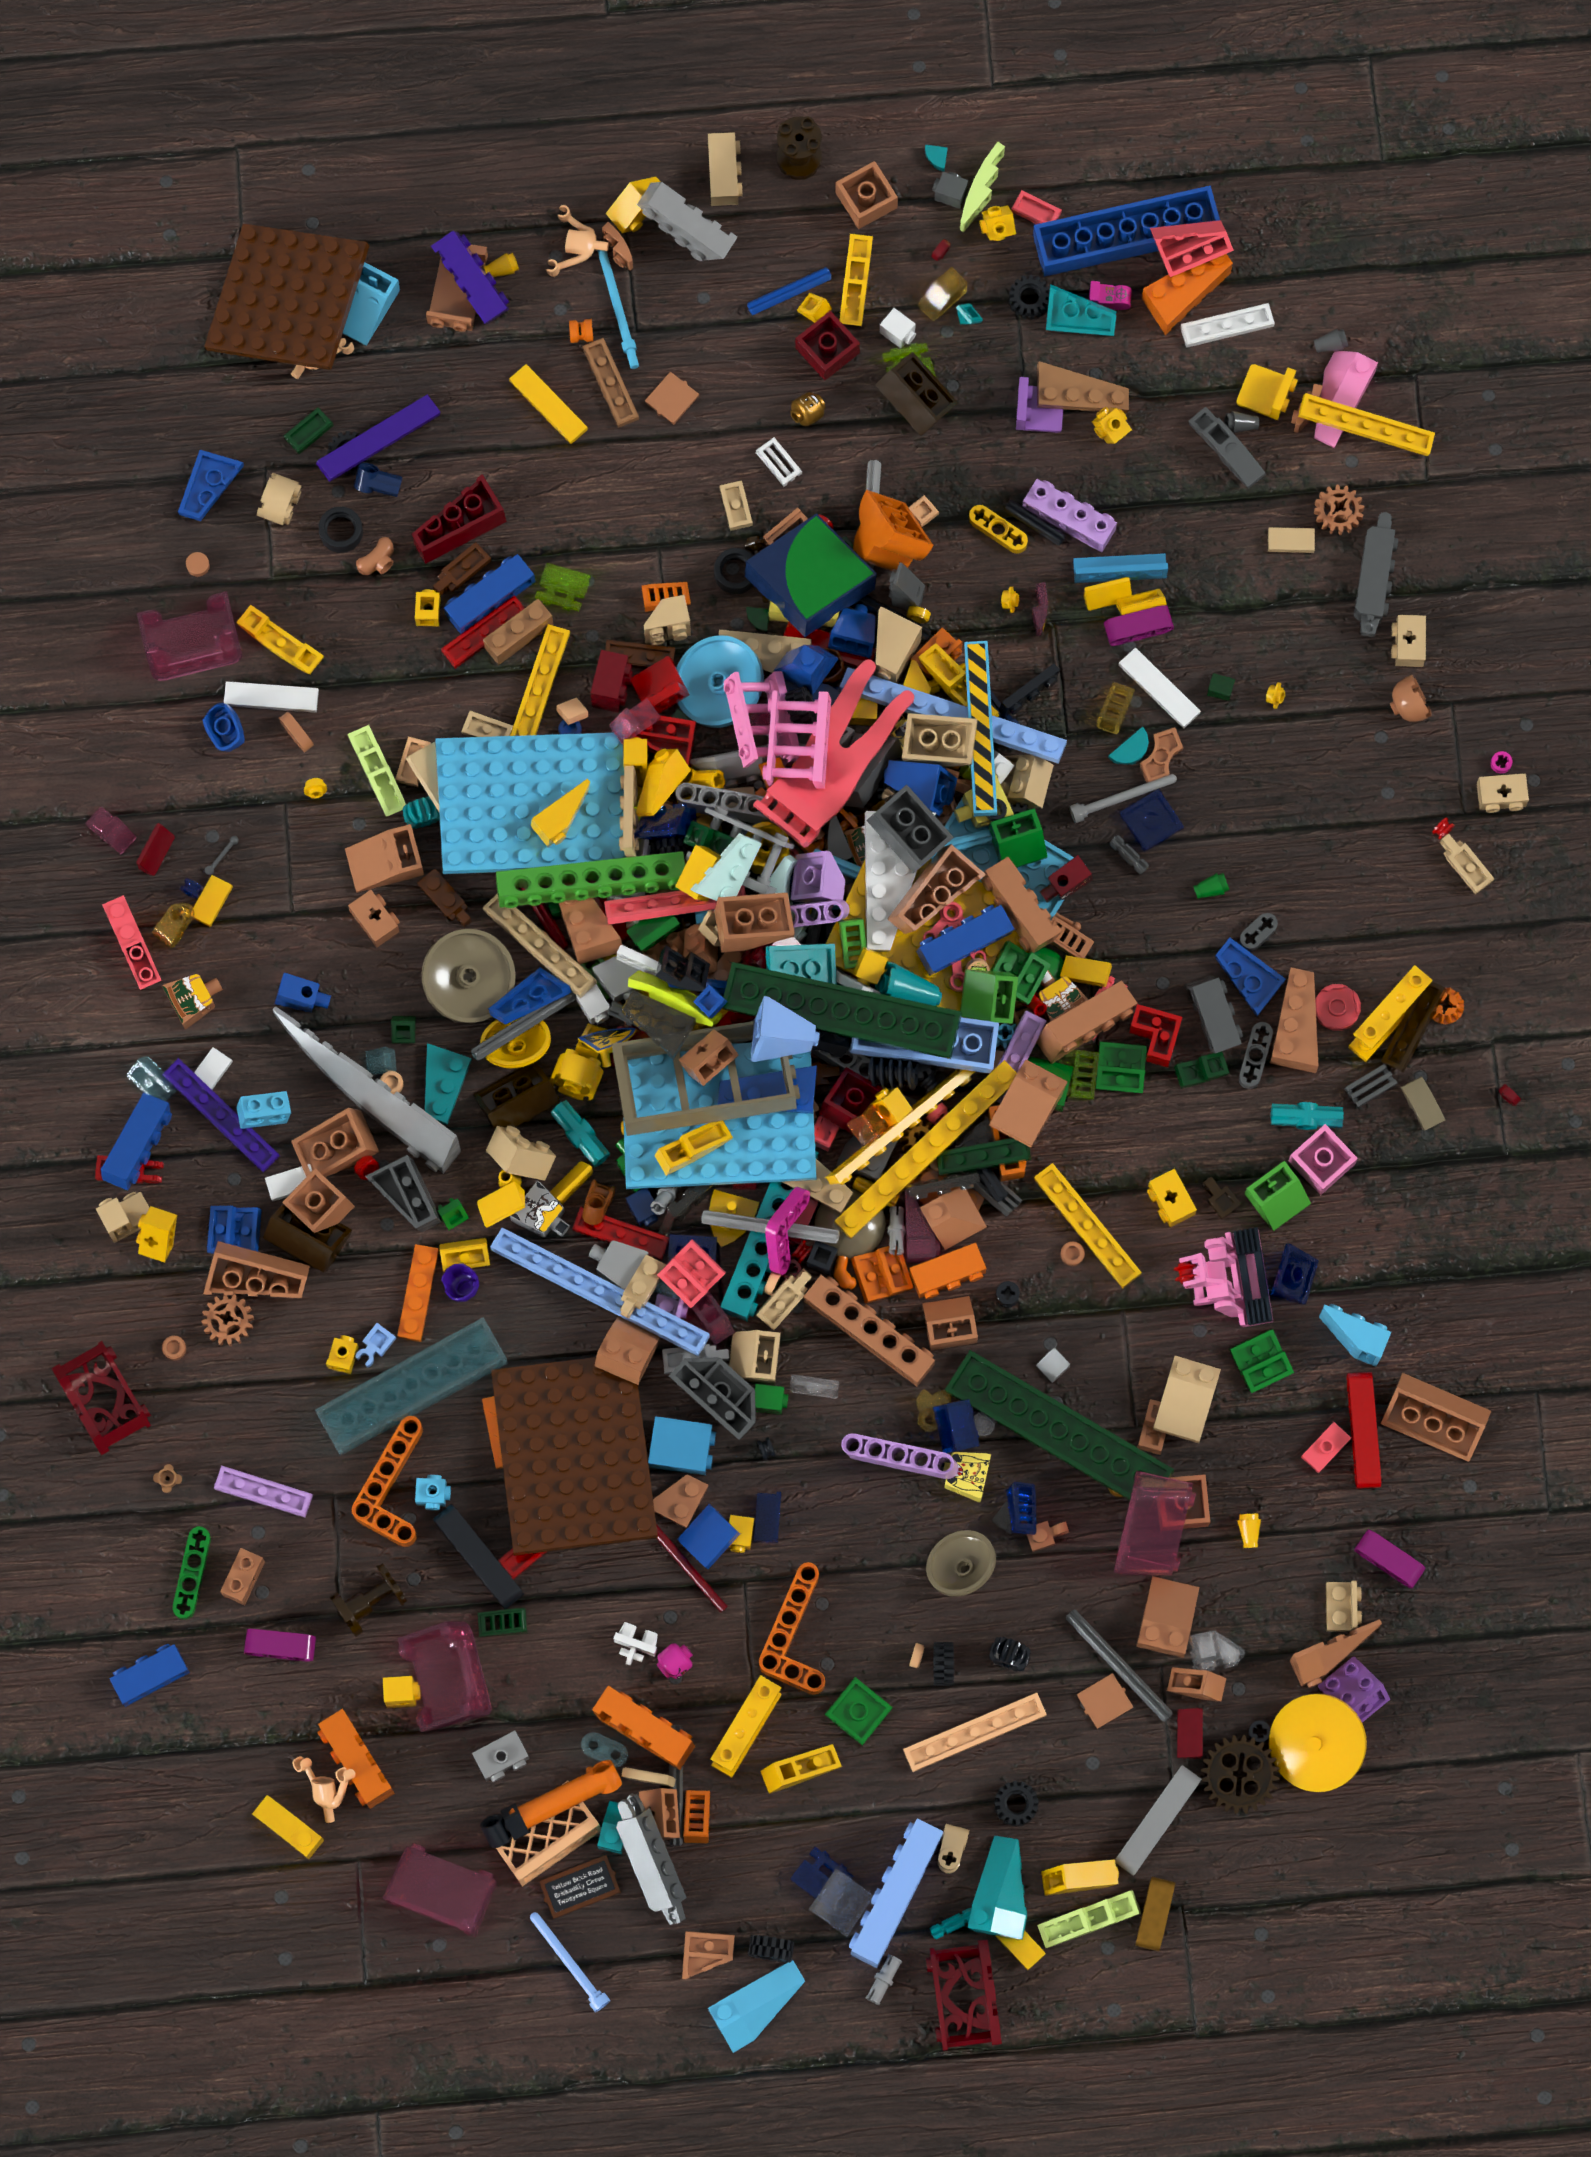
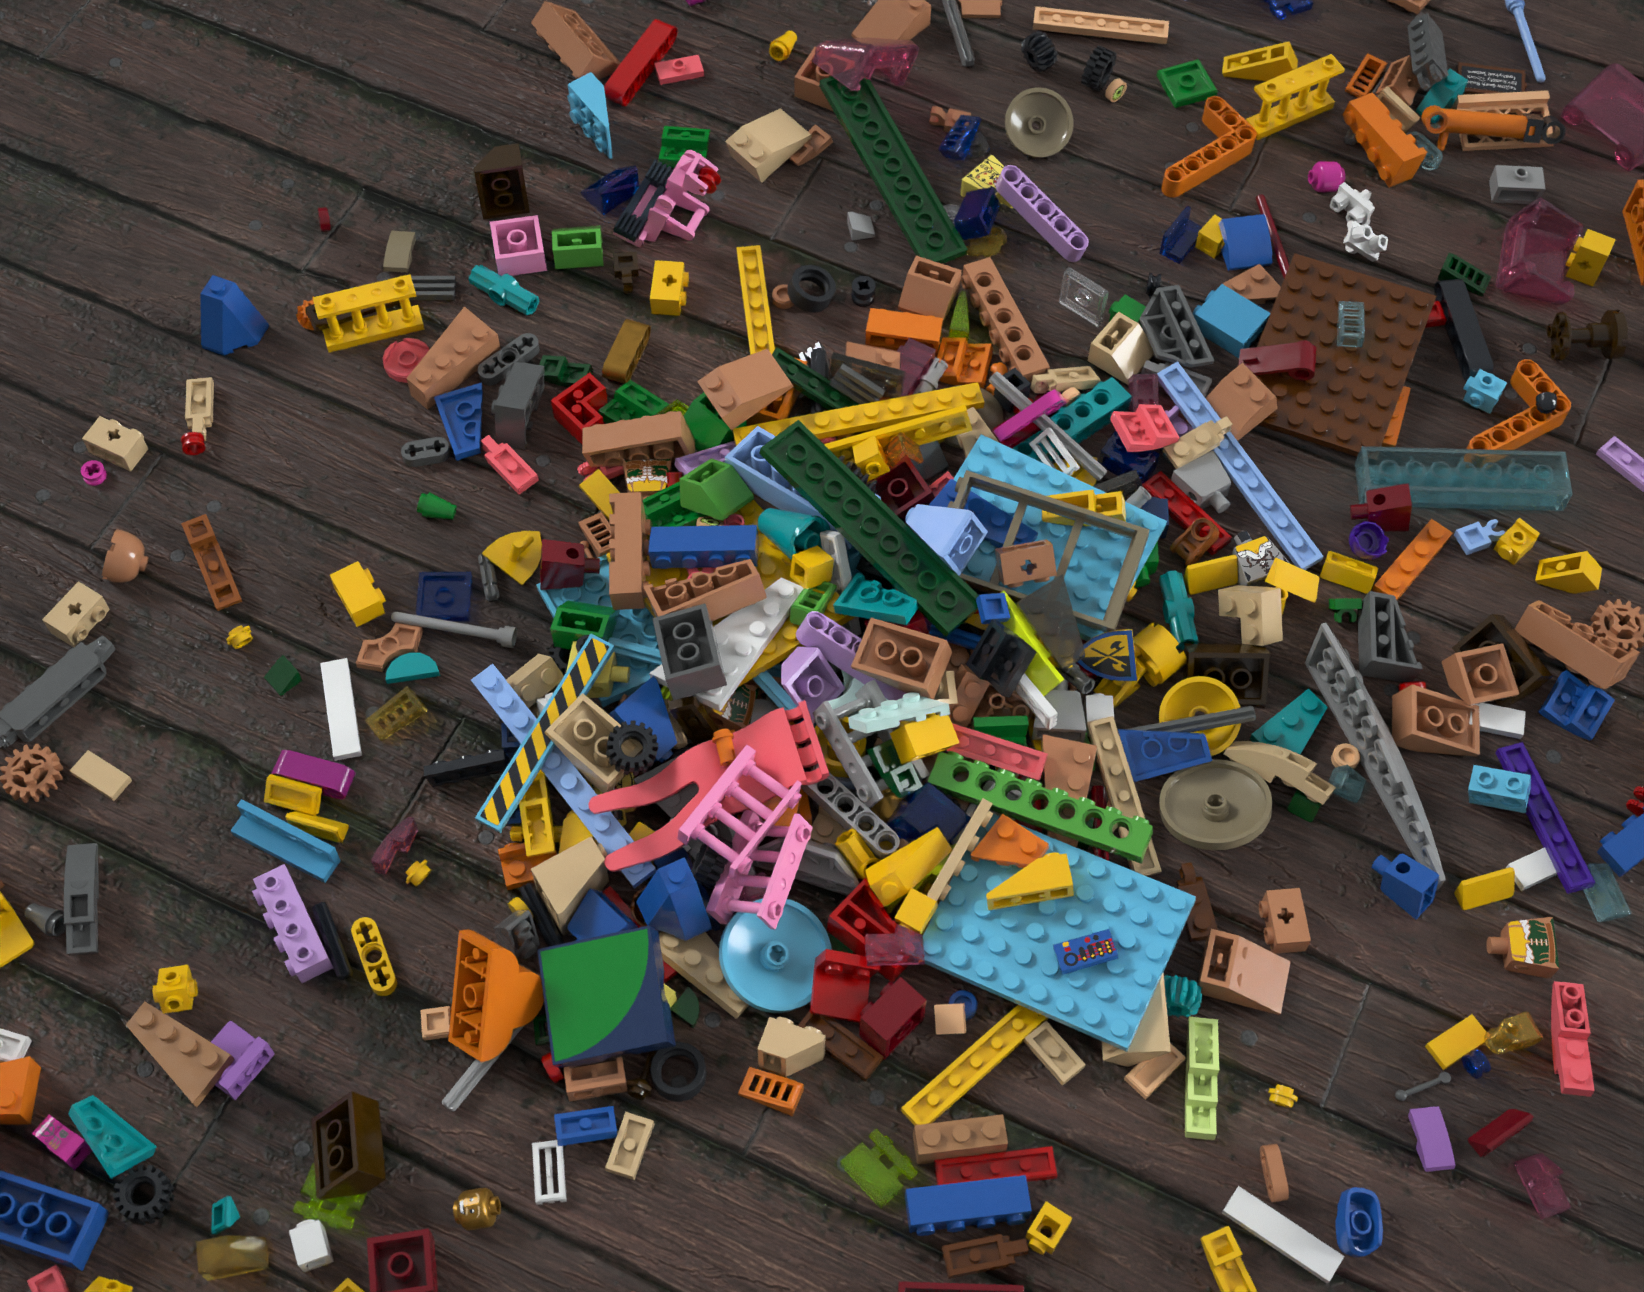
camera: 150 degrees left, 15 degrees down
(199, 817) = (1432, 1139): none -> medium lavender slope
(240, 1030) = (1486, 888): none -> yellow slope
(287, 1347) = (1570, 573): none -> yellow slope
(373, 1494) = (1546, 402): none -> black hinge
(434, 1036) = (1276, 761): none -> tan slope
(460, 1315) = (1386, 507): none -> dark red torso
(499, 785) = (1085, 951): none -> tile
(566, 1458) = (1350, 339): none -> clear light blue slope
(595, 839) = (1009, 844): none -> orange wing
(607, 1598) = (1363, 240): none -> white hips
(615, 1407) = (1294, 358): none -> dark red door
(749, 1202) = (1056, 441): none -> white tile
(773, 499) = (585, 1126): none -> blue plate
(844, 785) = (725, 747): none -> orange pin
(897, 733) = (627, 763): none -> black tyre
(904, 1303) = (960, 323): none -> clear neon green slope
(945, 1172) = (855, 389): none -> dark grey tile
(1068, 1265) = (818, 276): none -> black tyre
(1121, 885) = (516, 554): none -> yellow shield
(1163, 1116) = (626, 351): none -> pearl gold beam
(1183, 956) = (509, 465): none -> coral hinge
(1212, 776) = (358, 594): none -> yellow brick
(1341, 739) = (211, 562): none -> dark orange slope
(1373, 1205) = (501, 183): none -> dark brown slope
(1501, 949) = (228, 318): none -> blue slope

